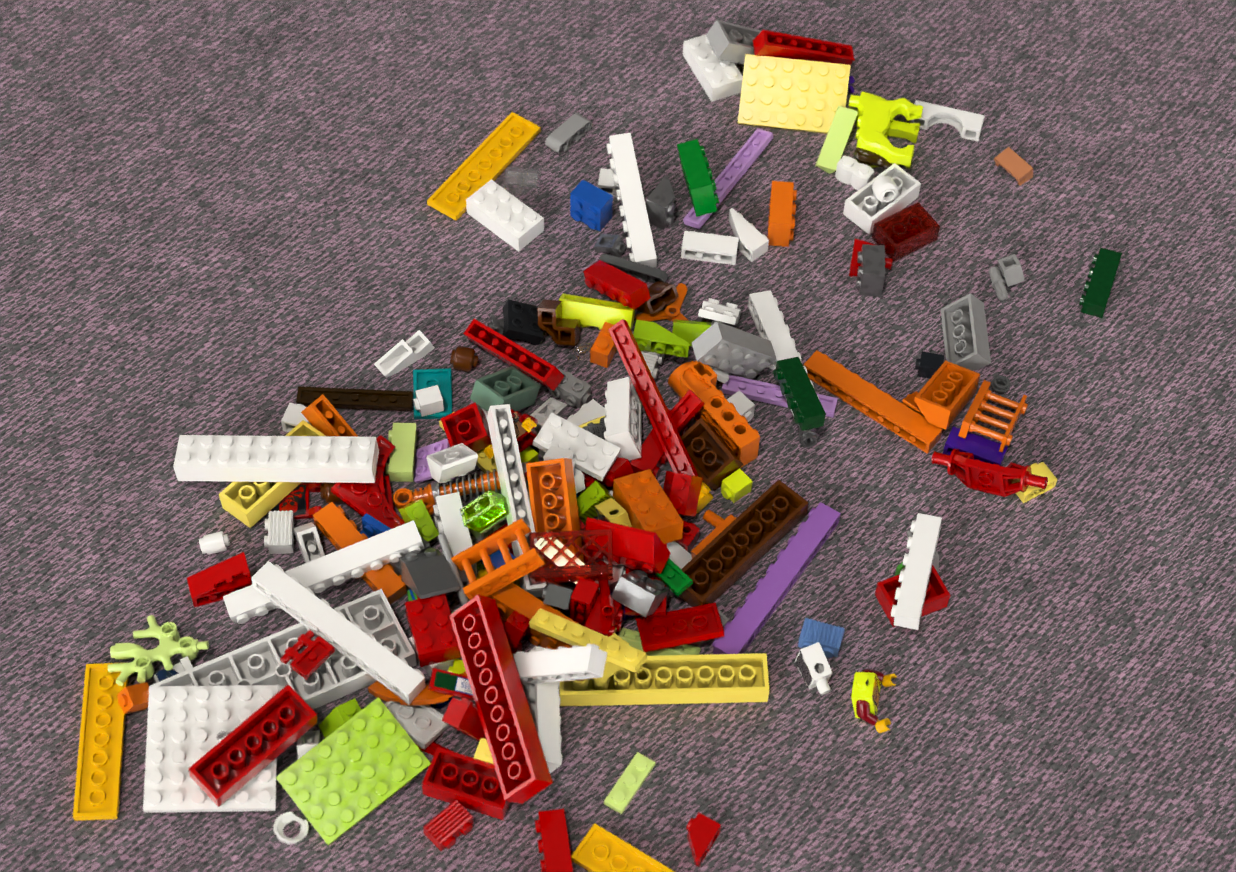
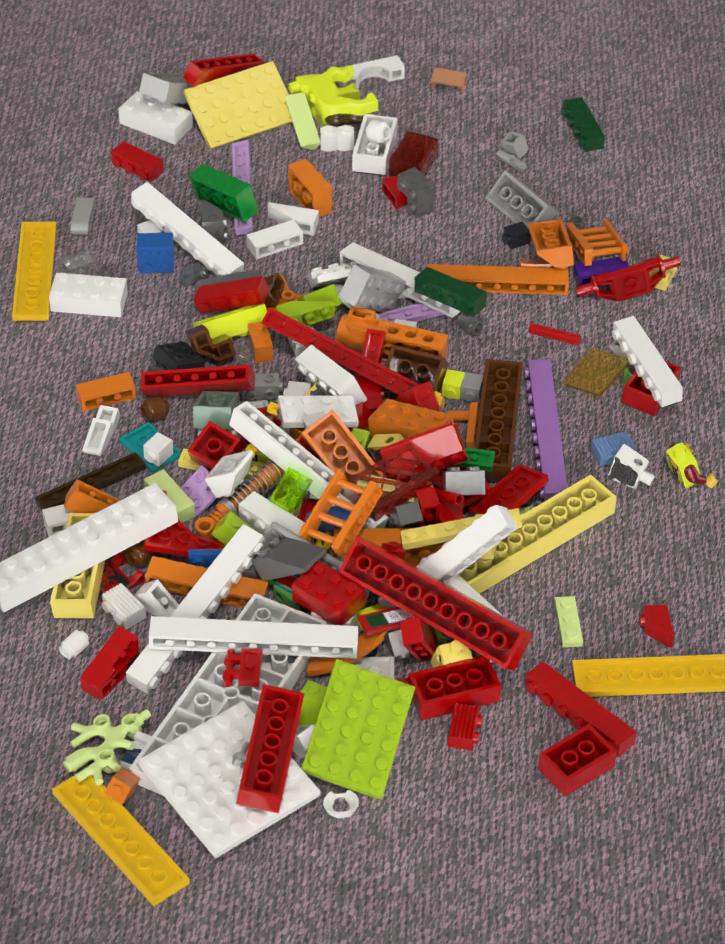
camera: 35 degrees left, 10 degrees down
(439, 318) = (105, 391): none -> orange brick
(659, 103) = (137, 161): none -> red brick
(747, 496) = (472, 387): none -> light grey brick
(874, 550) = (596, 372): none -> clear yellow piece
(877, 489) = (555, 334): none -> red axle

